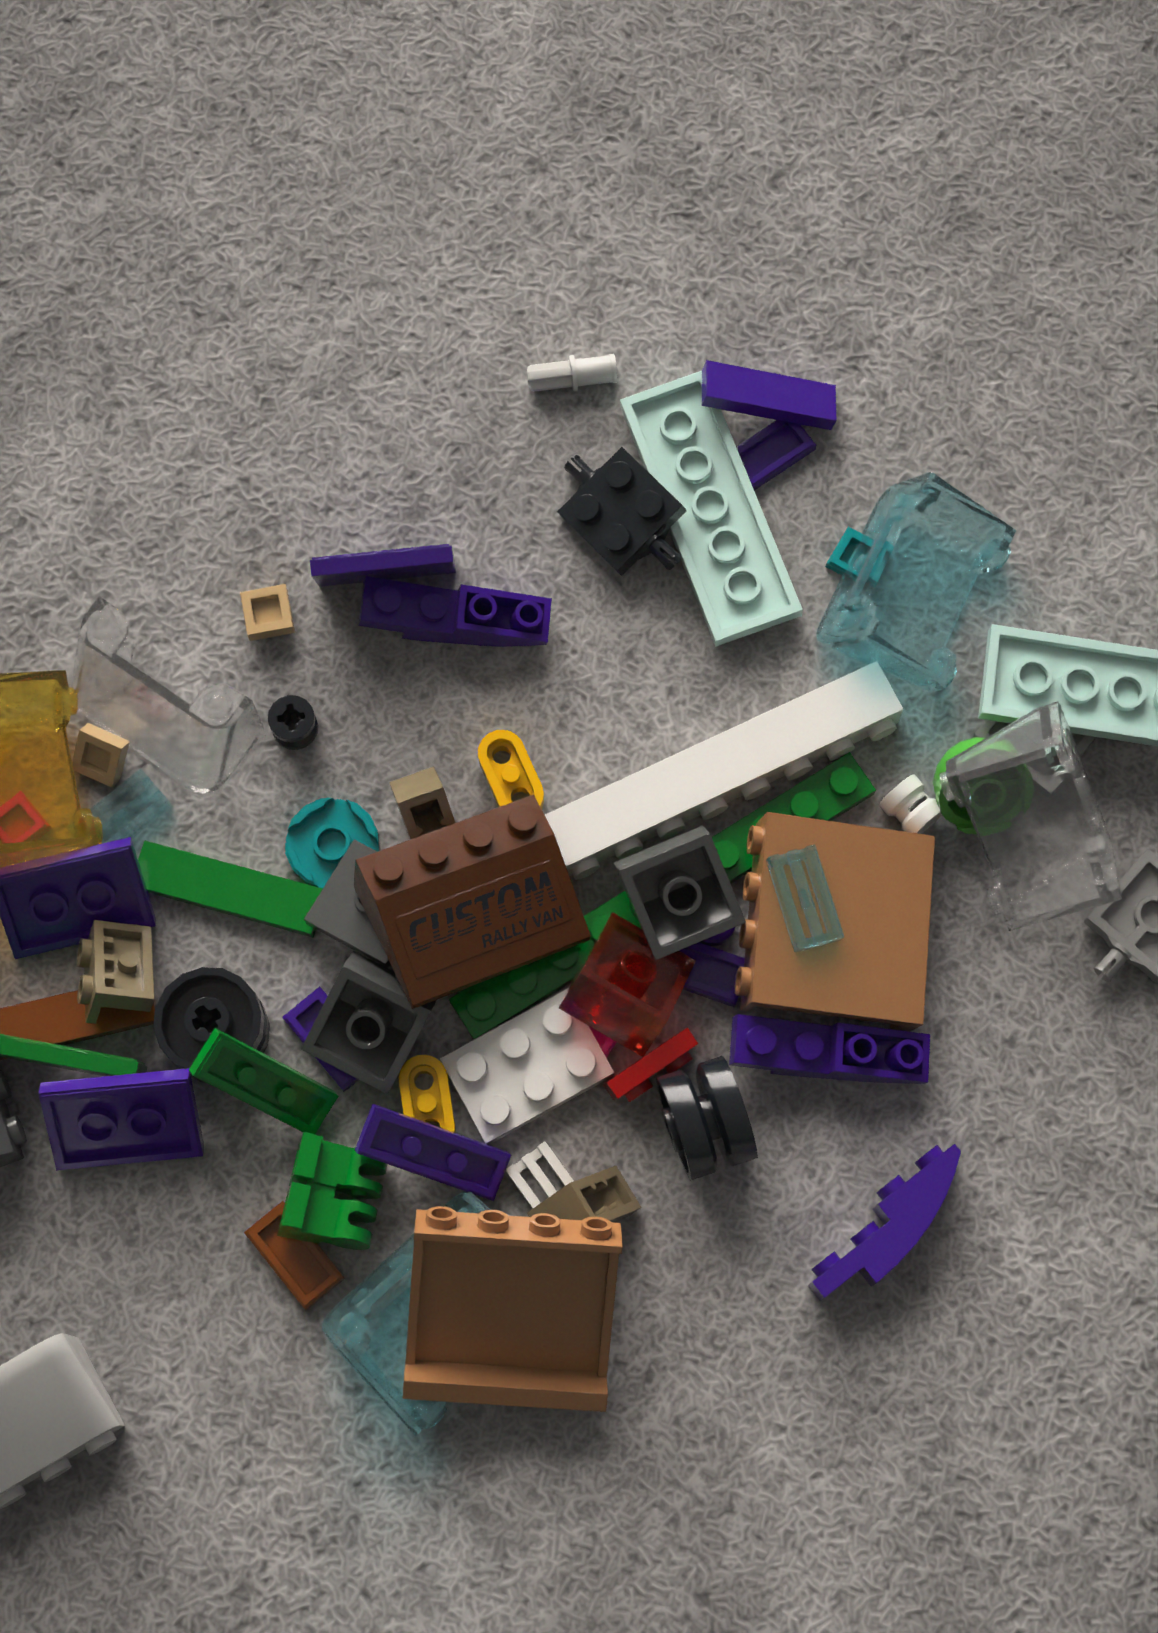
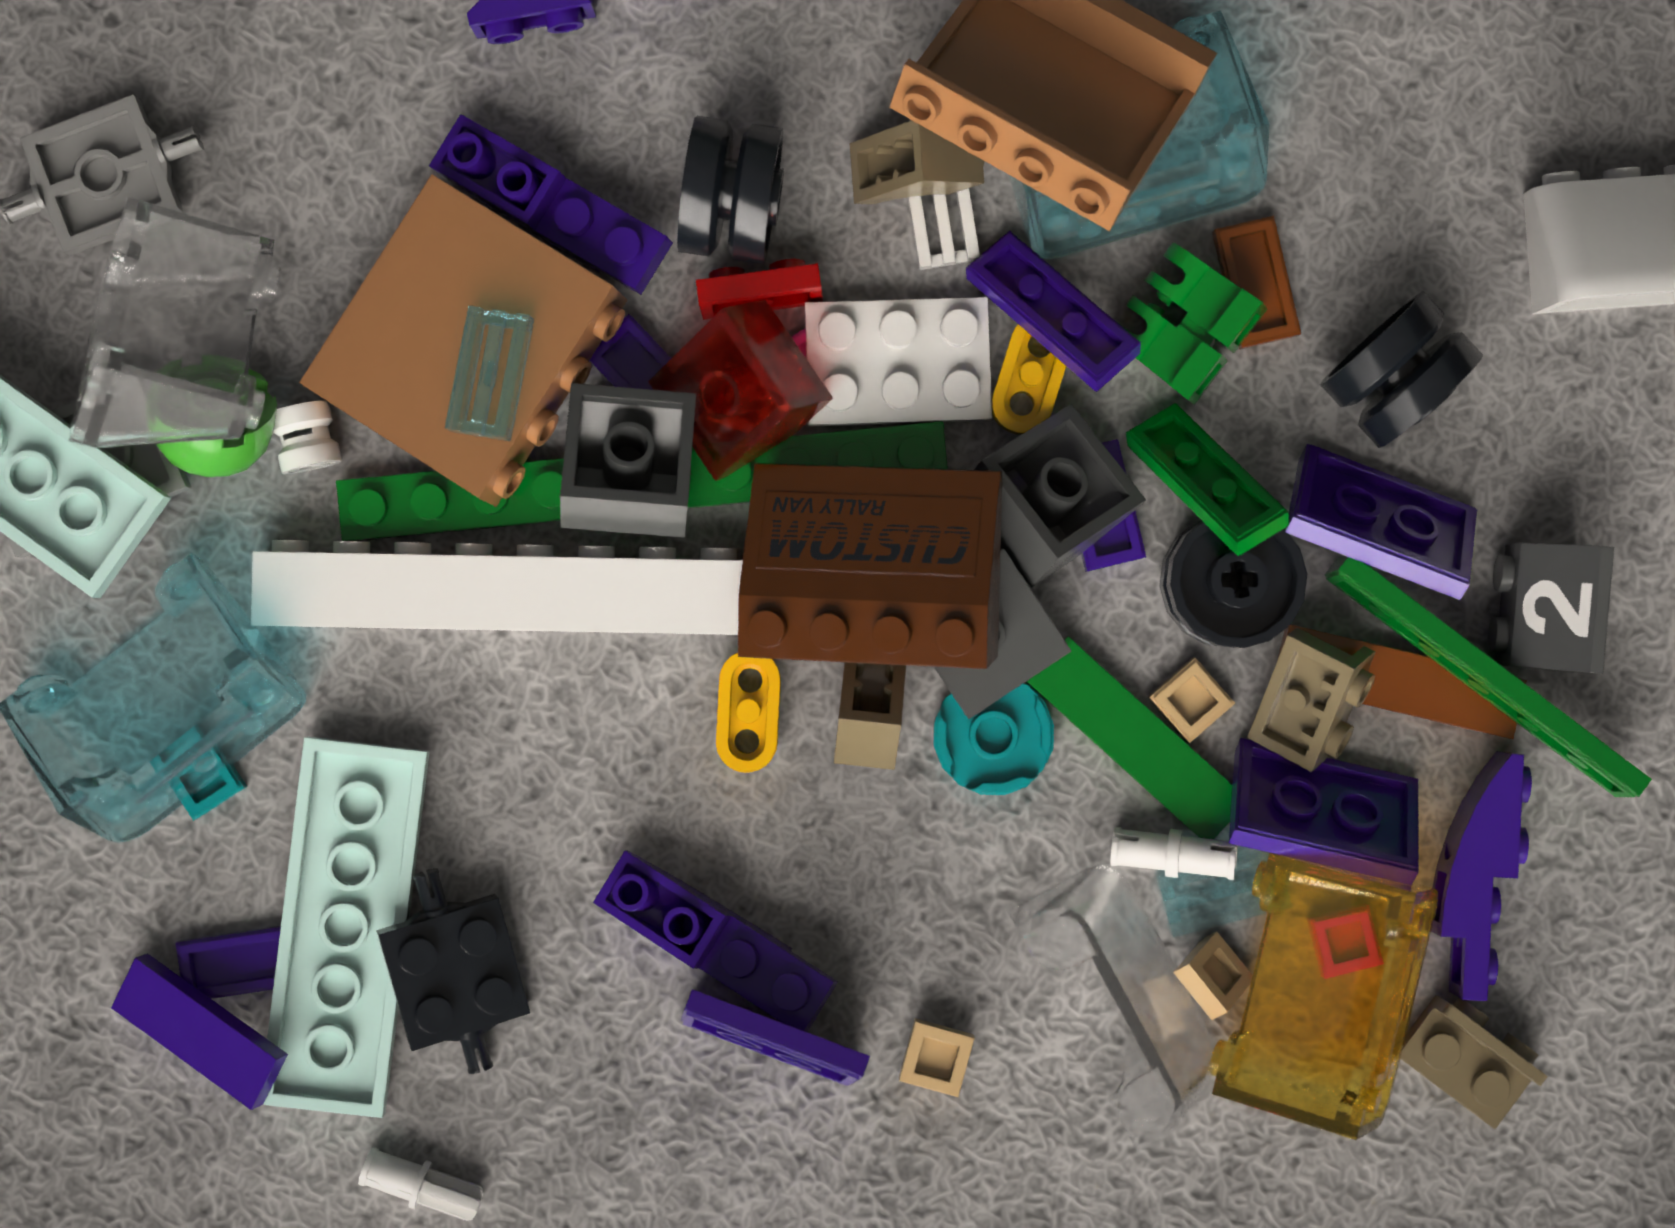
camera: 155 degrees left, 15 degrees up
(157, 1232) = (1407, 376): none -> black wheel
(167, 821) = (1173, 853): none -> white pin
(203, 935) = (1191, 700): none -> tan tile
(296, 732) = (964, 889): black wheel -> none

